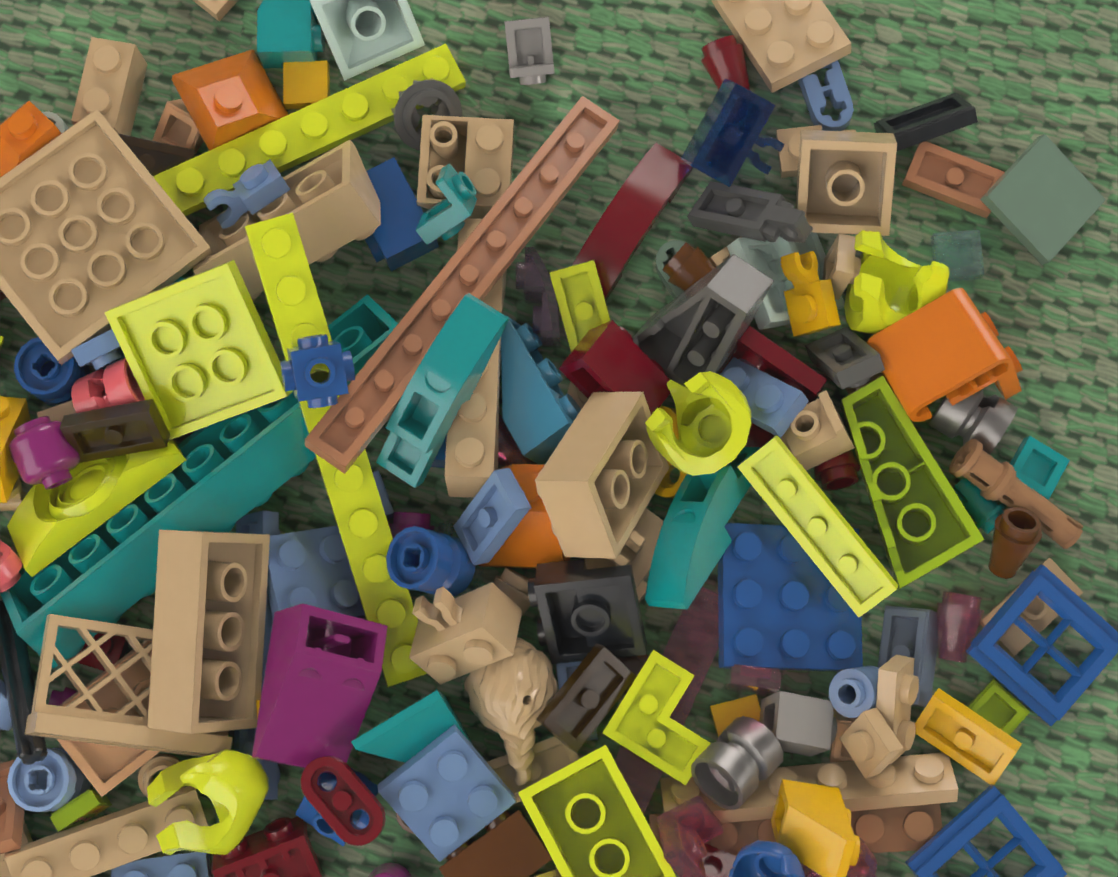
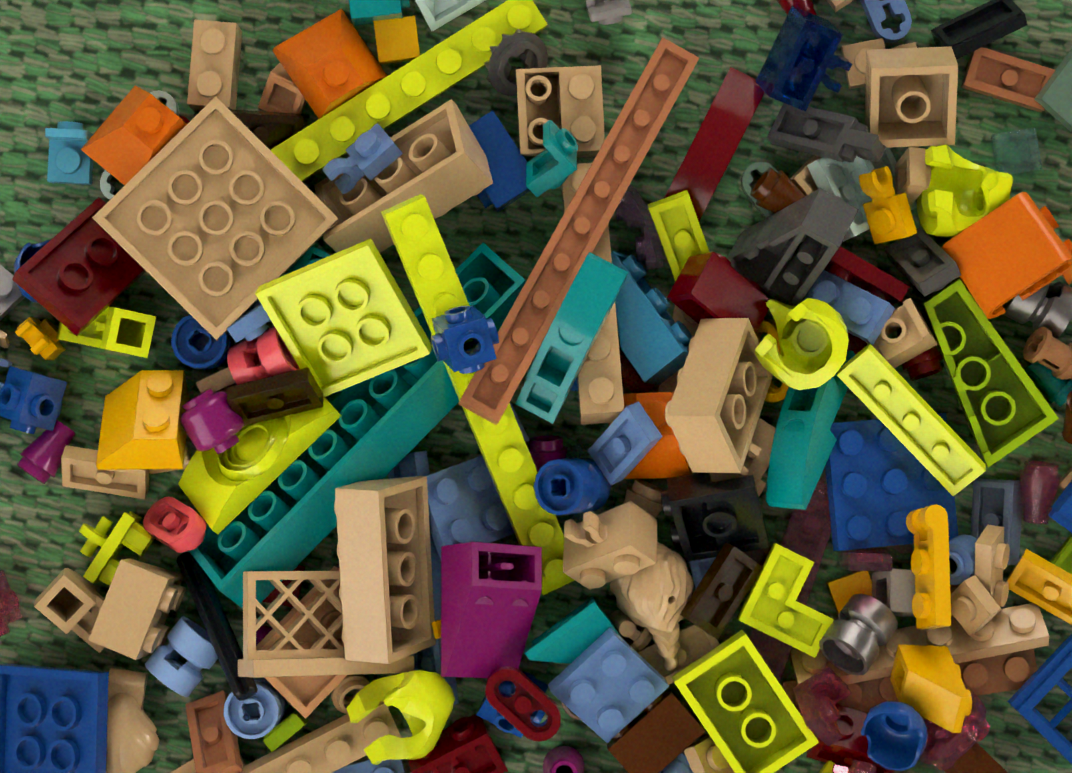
camera: 15 degrees left, 10 degrees up
(488, 743) = (633, 634): none -> tan plate
(826, 692) = (930, 566): none -> yellow plate

